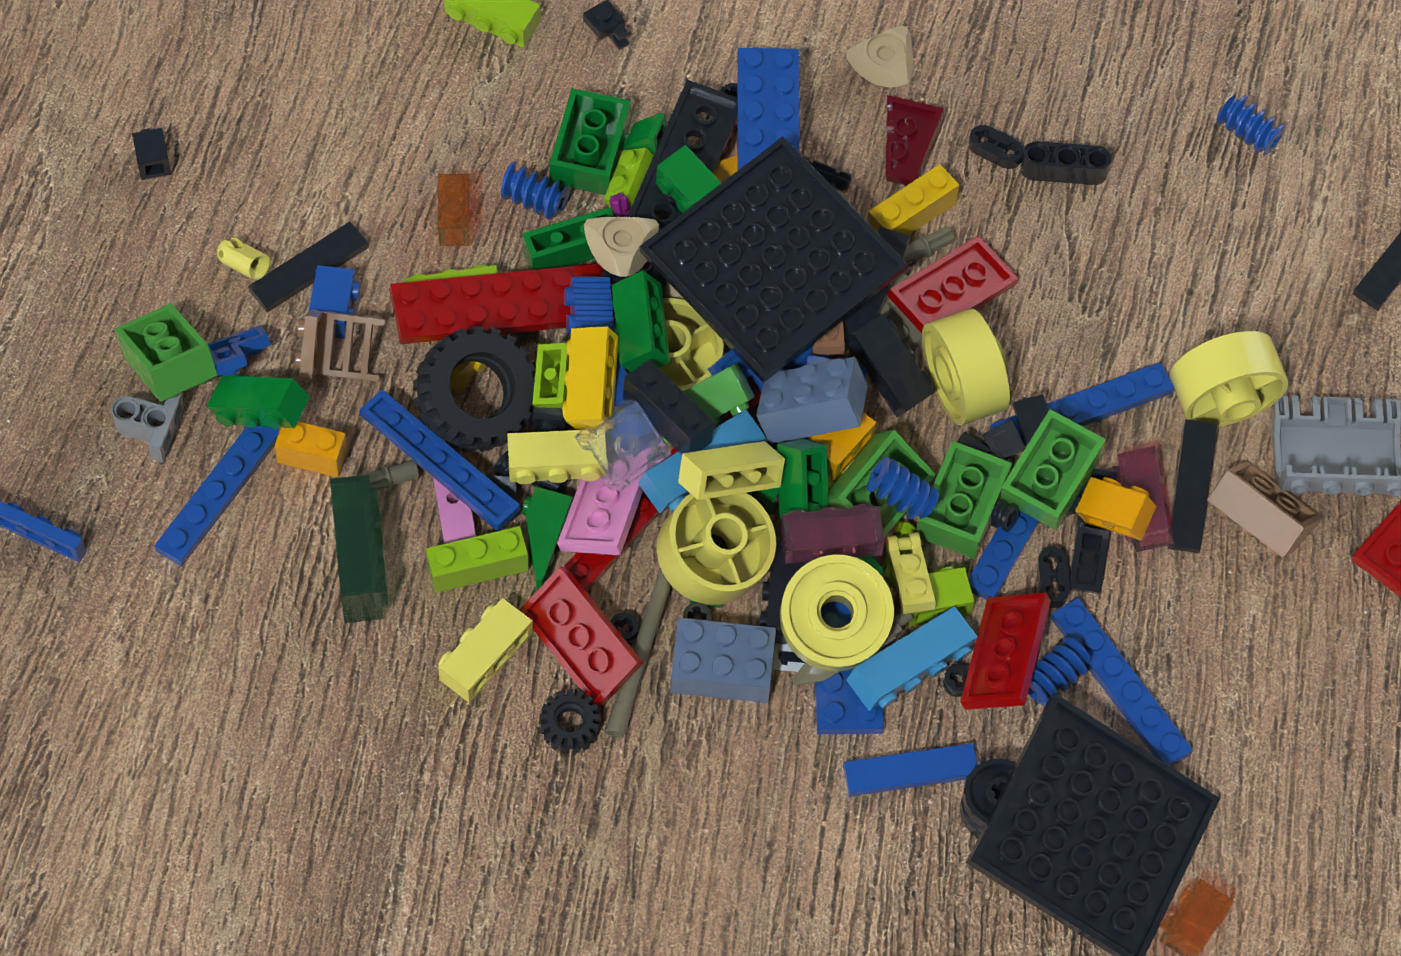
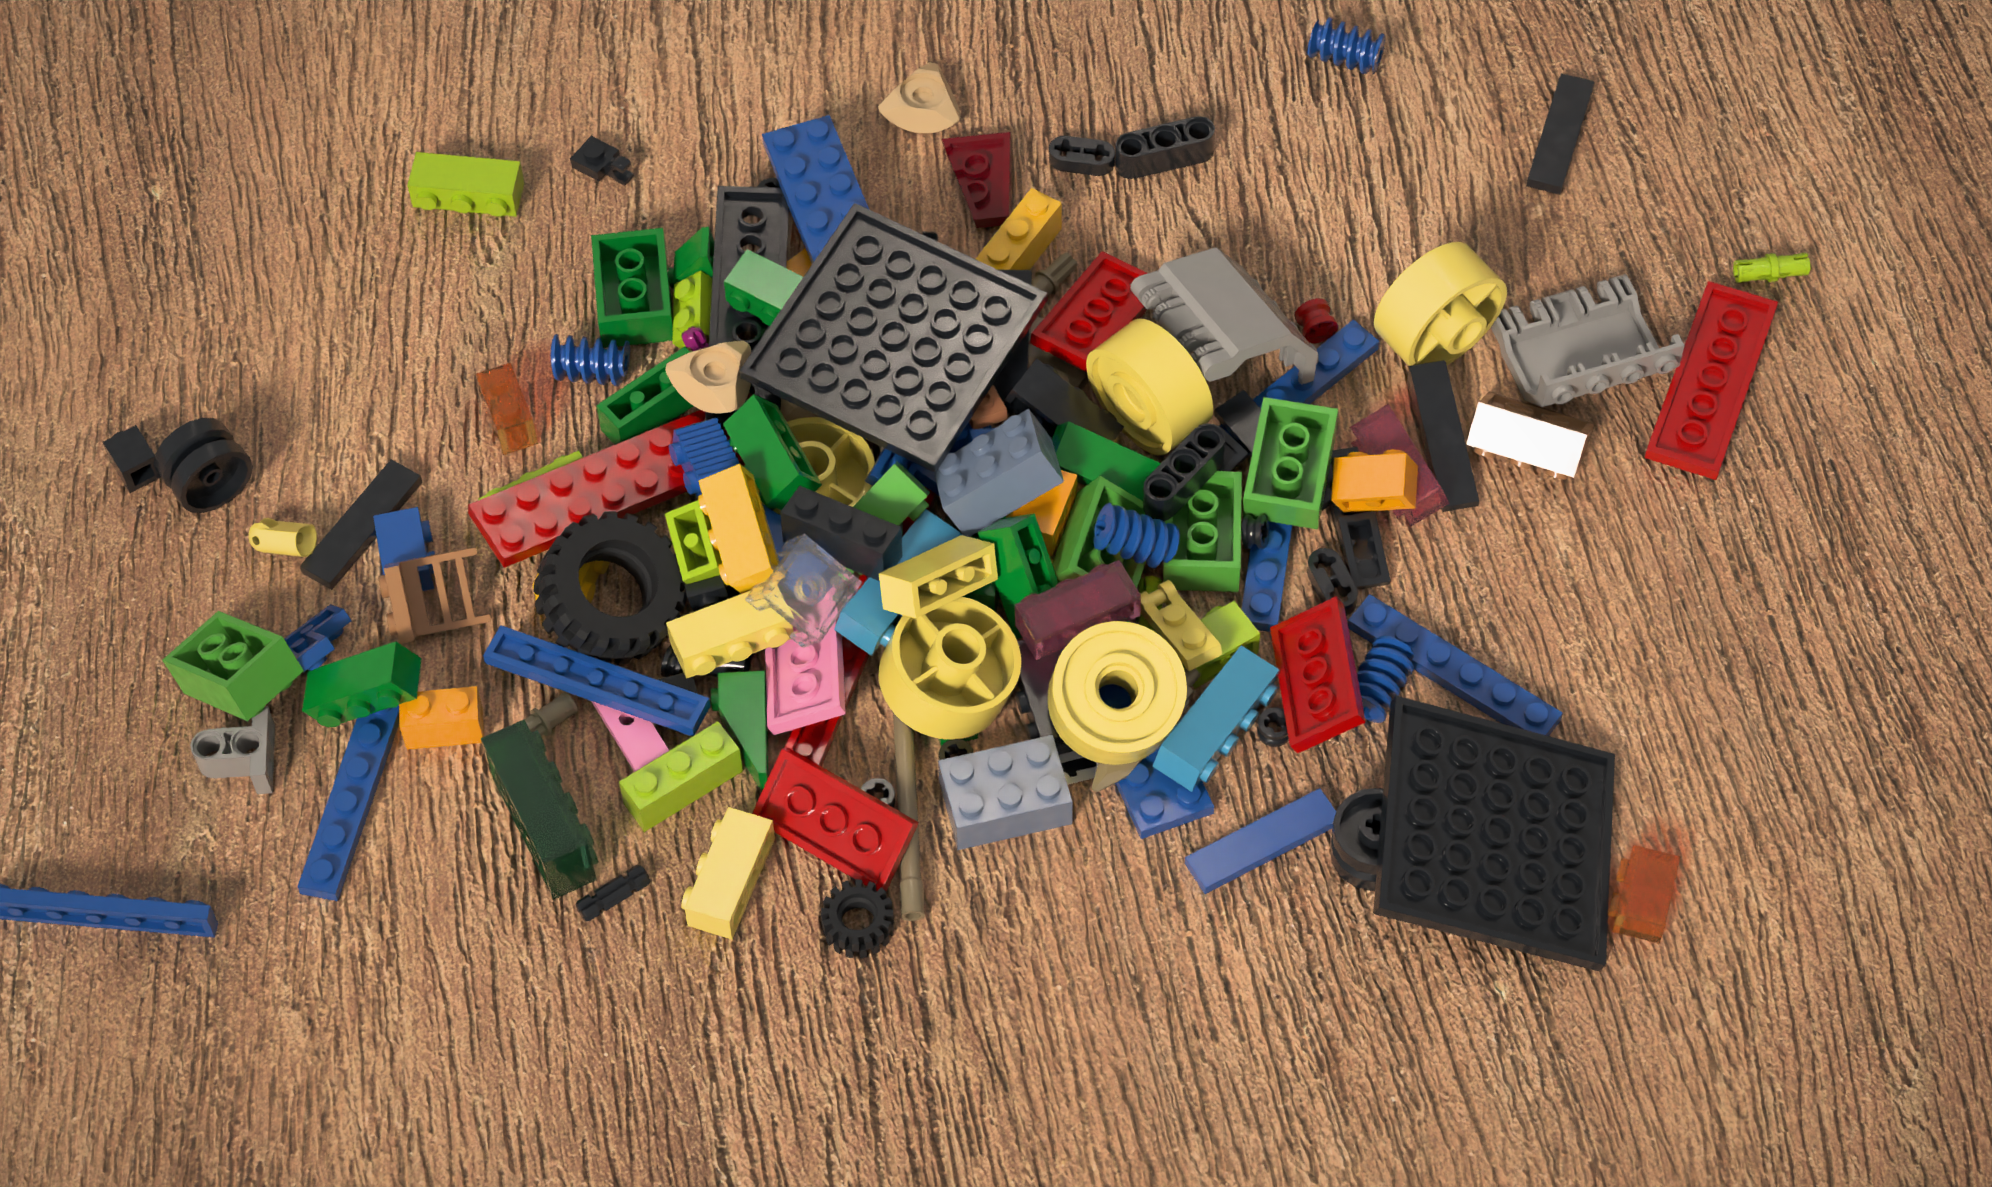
camera: 15 degrees left, 5 degrees down
(201, 179) = (203, 465): none -> black wheel
(391, 634) = (613, 892): none -> black axle
(898, 412) = (1095, 456): none -> green brick
(956, 461) = (1187, 457): none -> black beam
(1047, 326) = (1221, 315): none -> light grey hinge
(1129, 353) = (1316, 321): none -> red wheel

